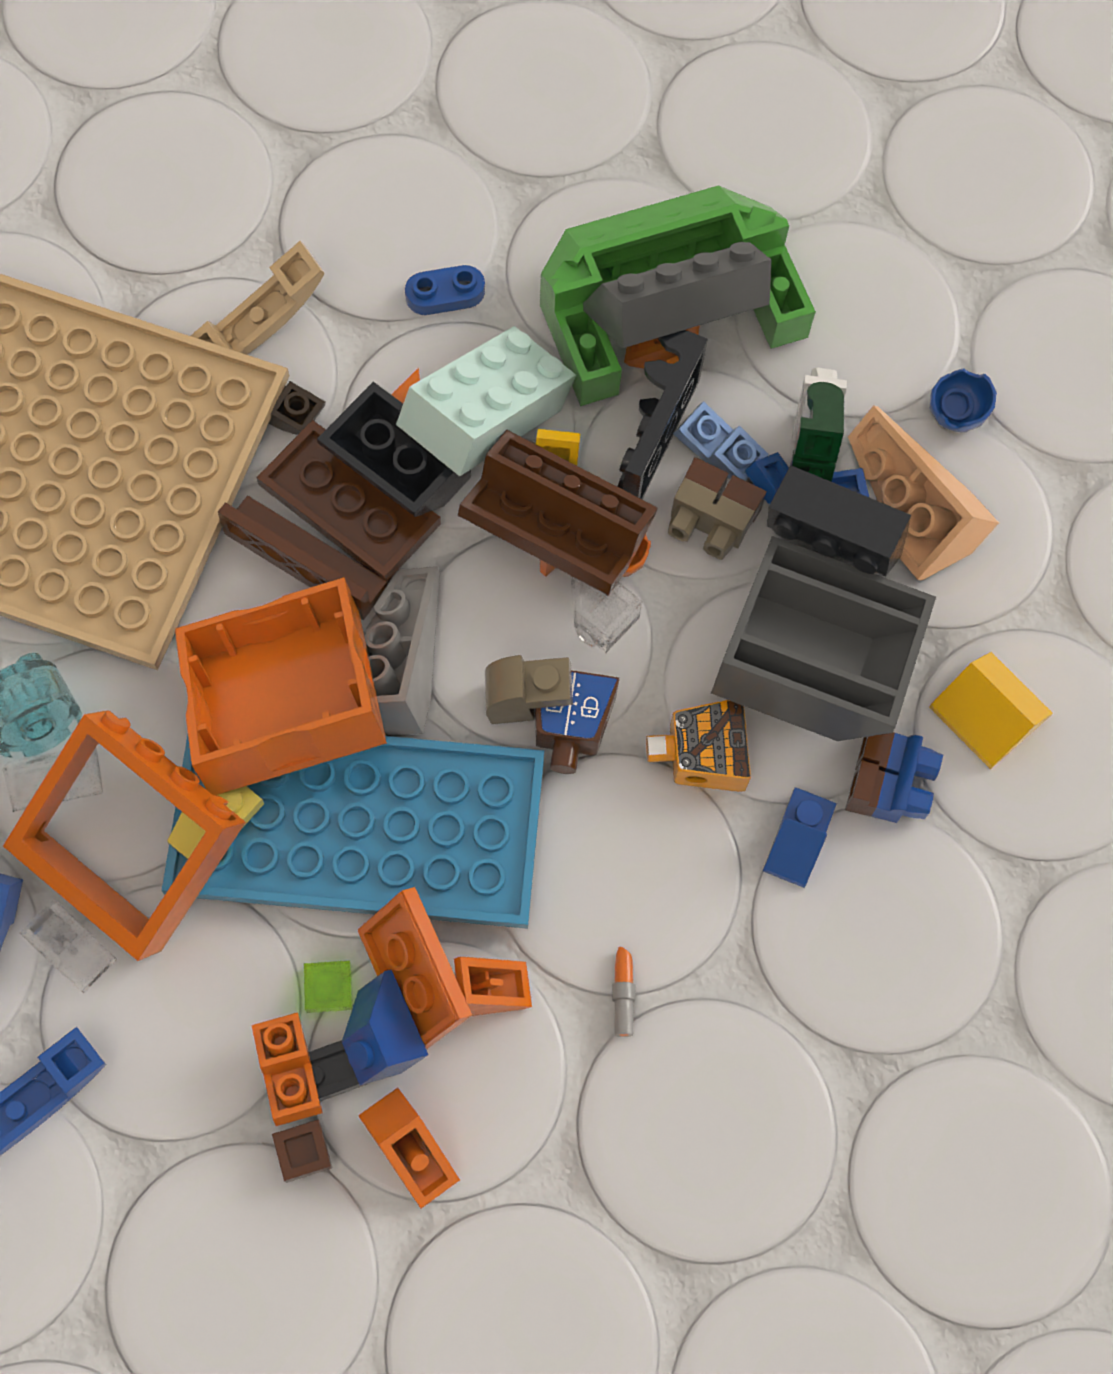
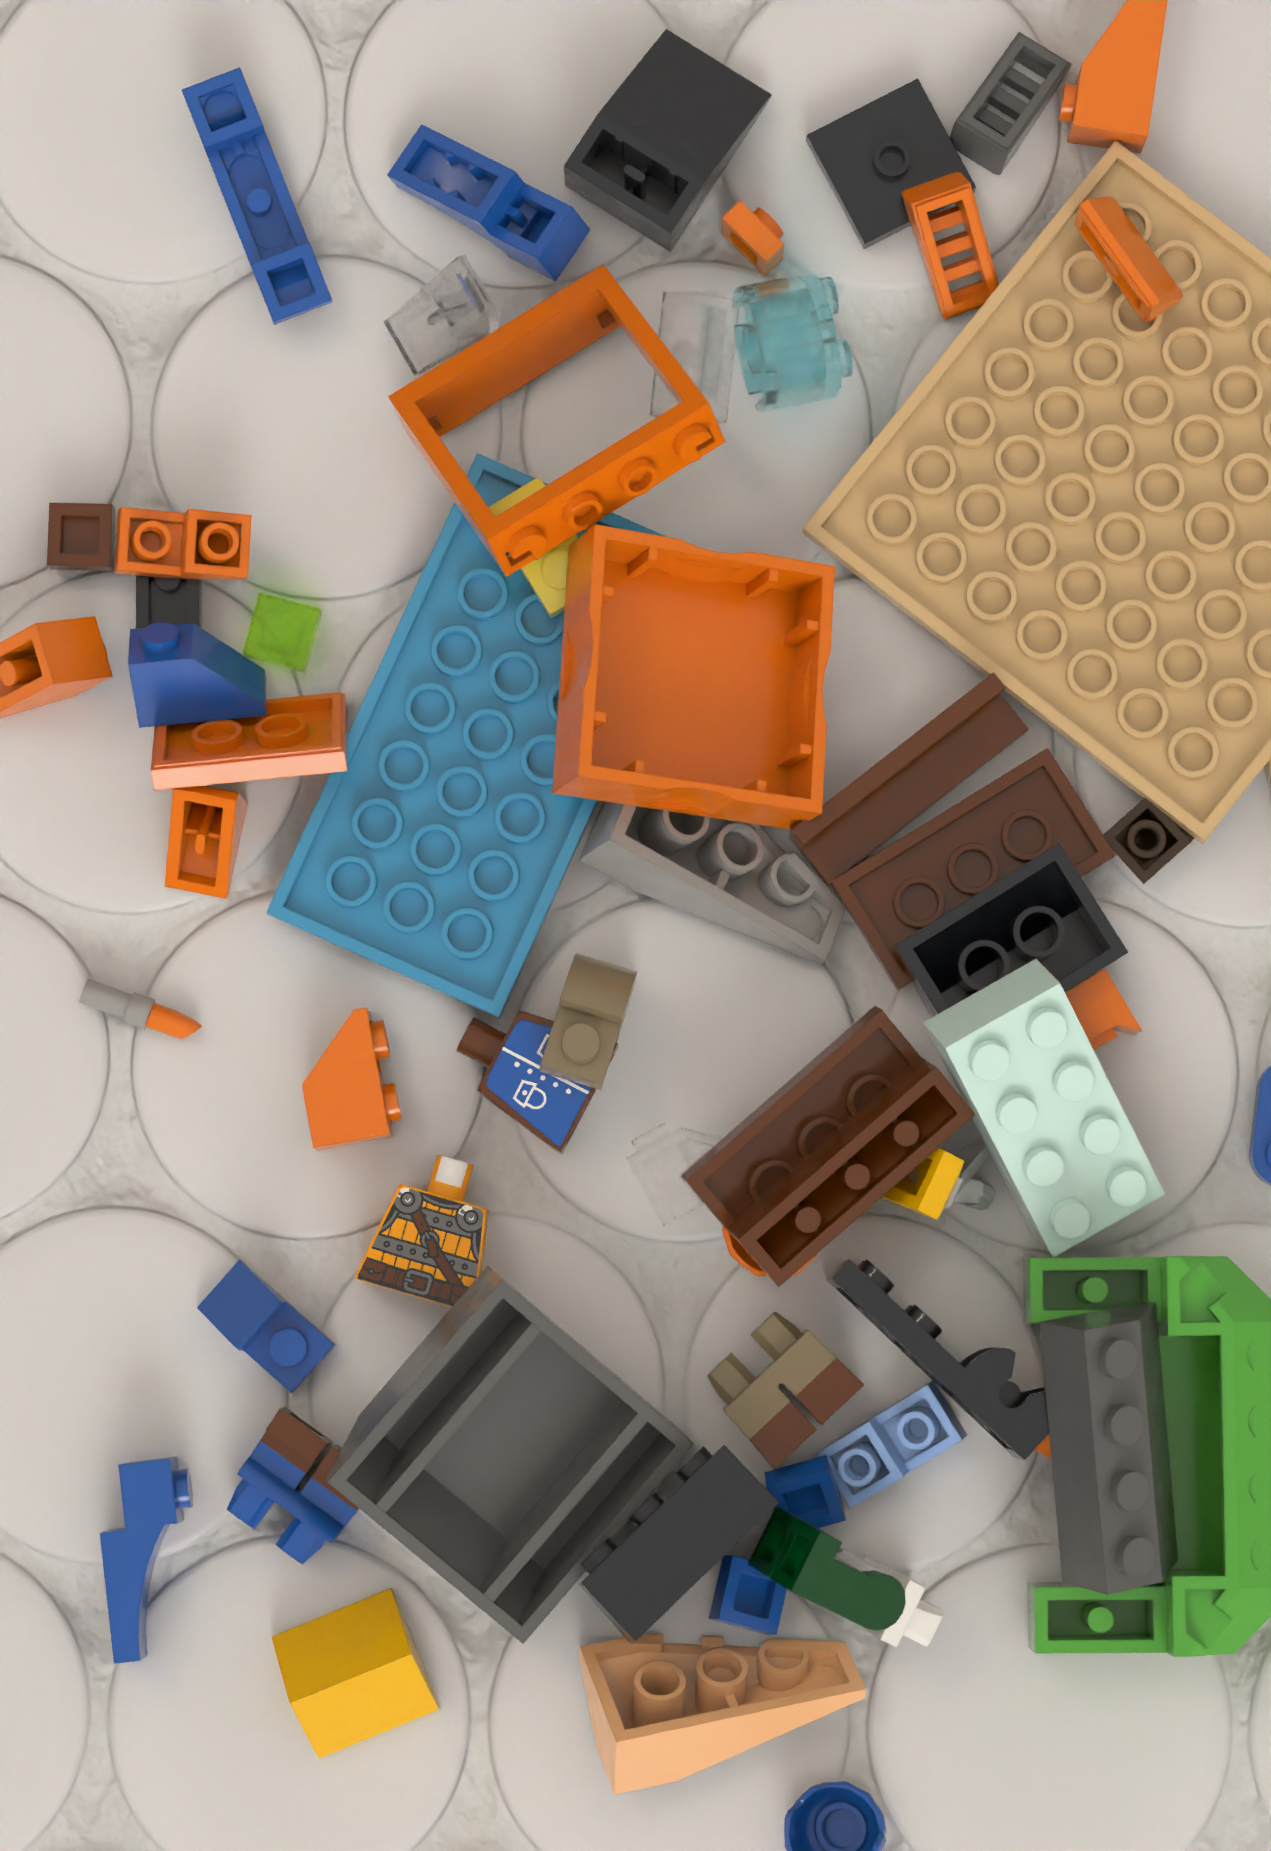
camera: 115 degrees right, 15 degrees up
(626, 832) = (346, 1087): none -> orange slope
(978, 868) = (151, 1500): none -> blue slope

